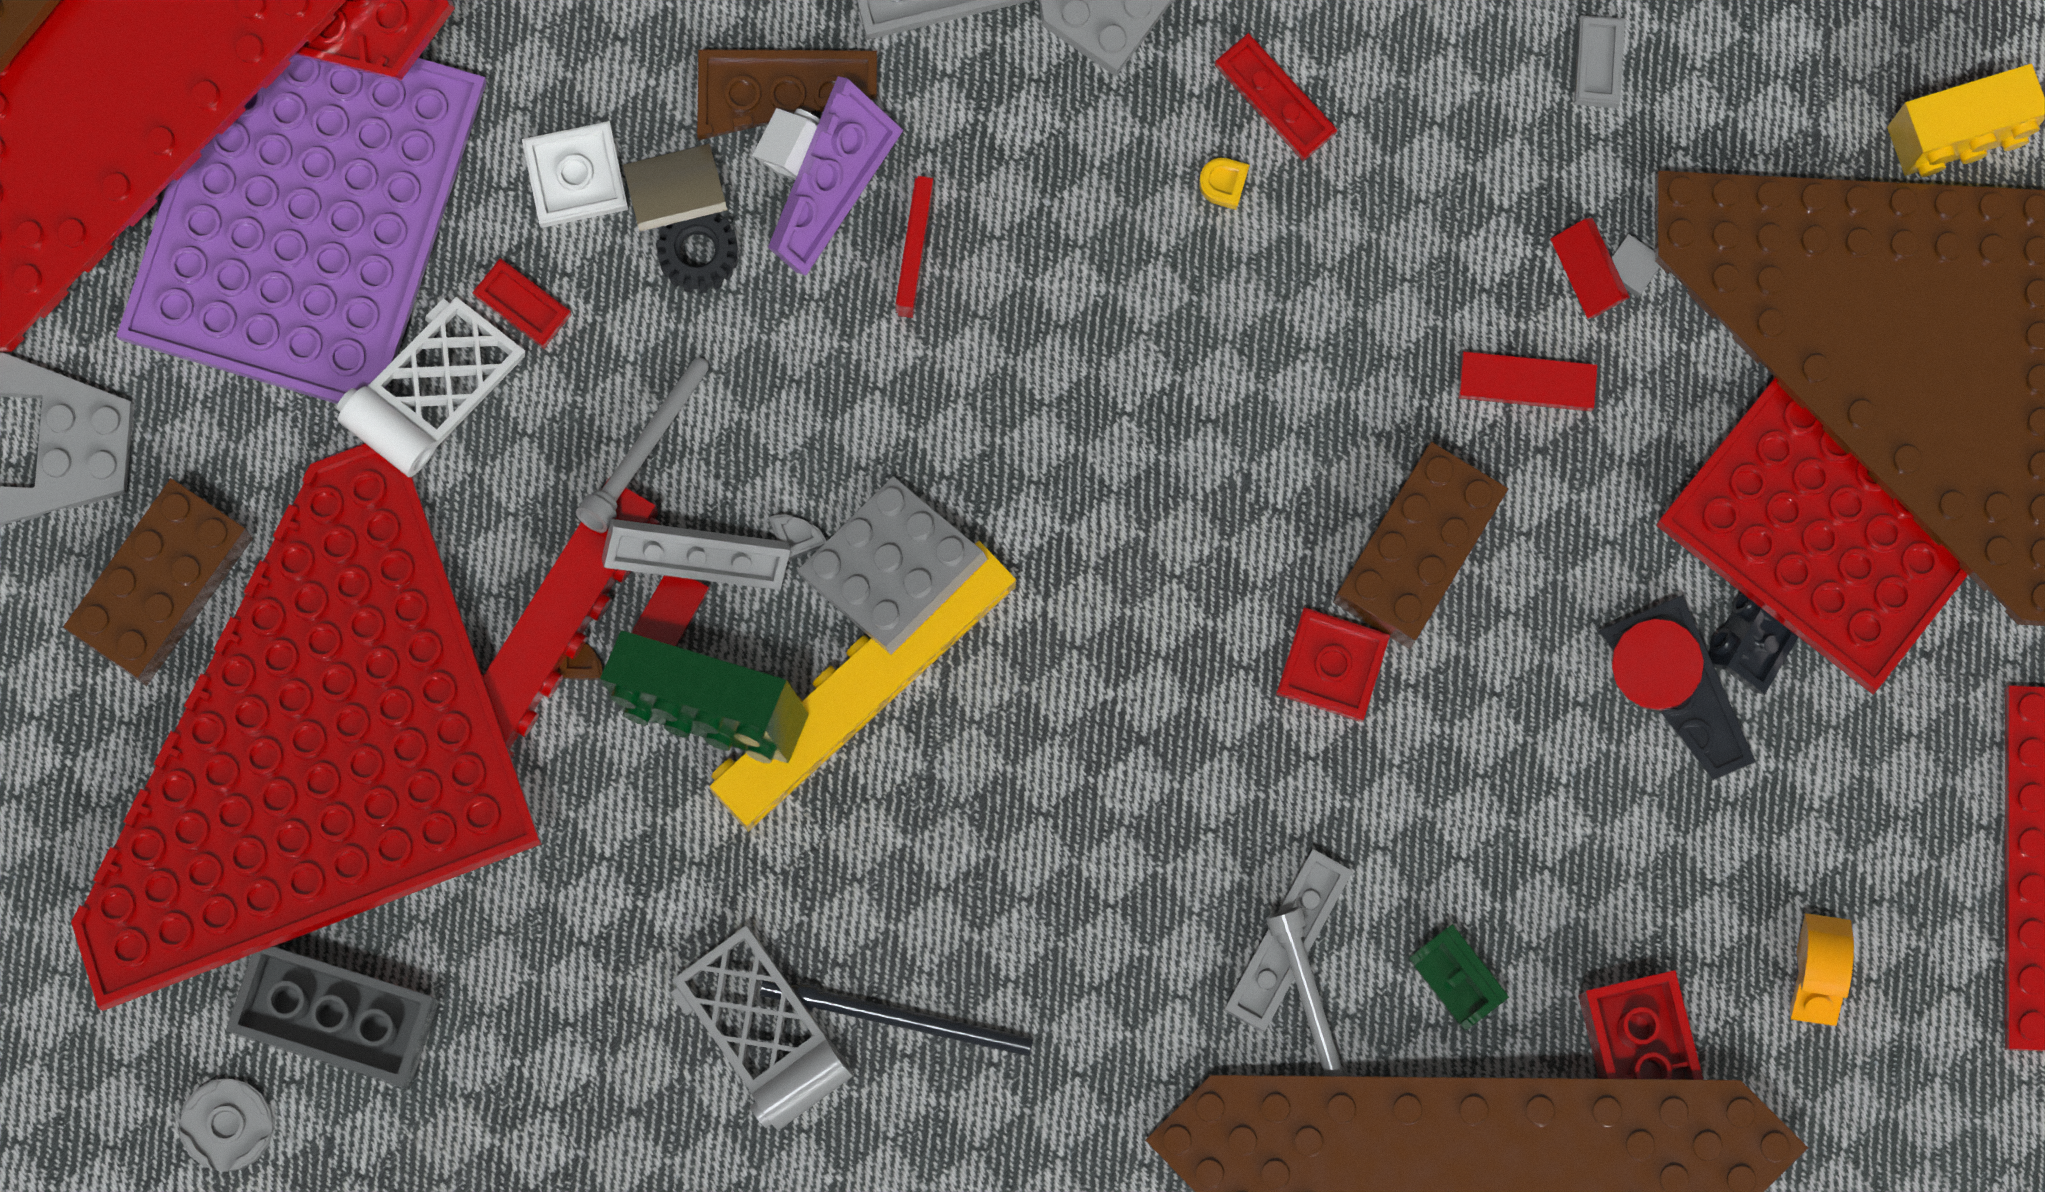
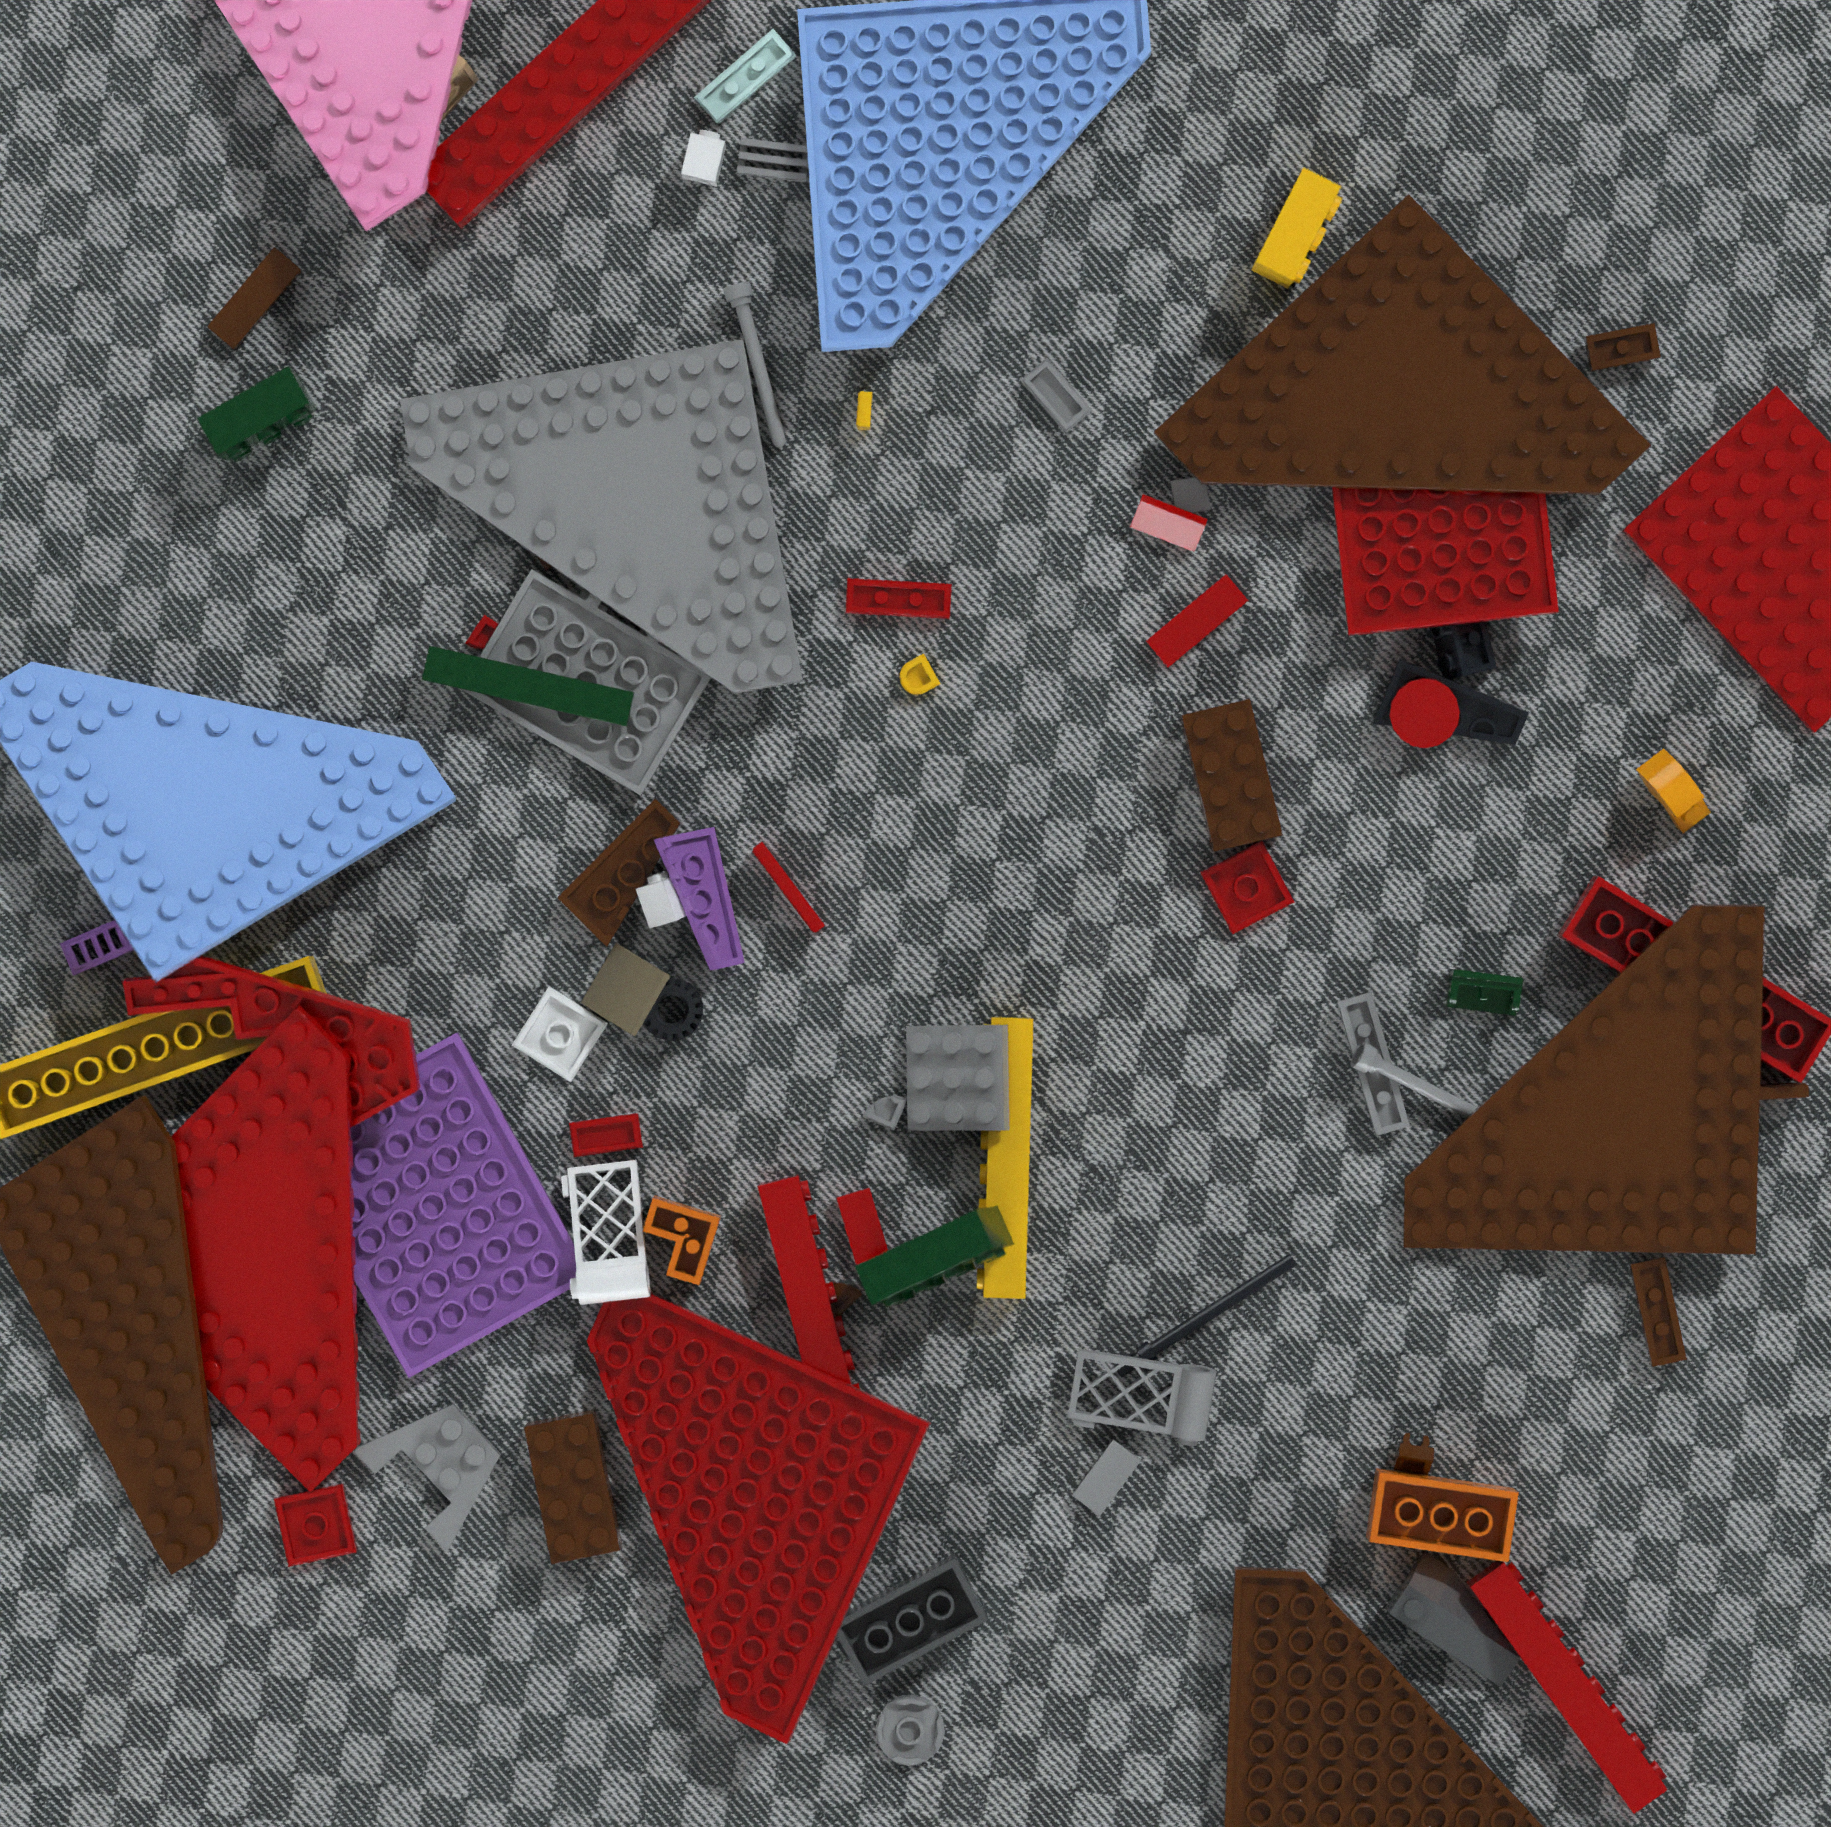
camera: 40 degrees left, 10 degrees up
(503, 466) = (690, 1229): none -> orange brick
(600, 507) = (772, 1210): light grey piece -> none
(650, 1074) = (1106, 1477): none -> light grey tile
(695, 554) = (847, 1180): light grey plate -> none

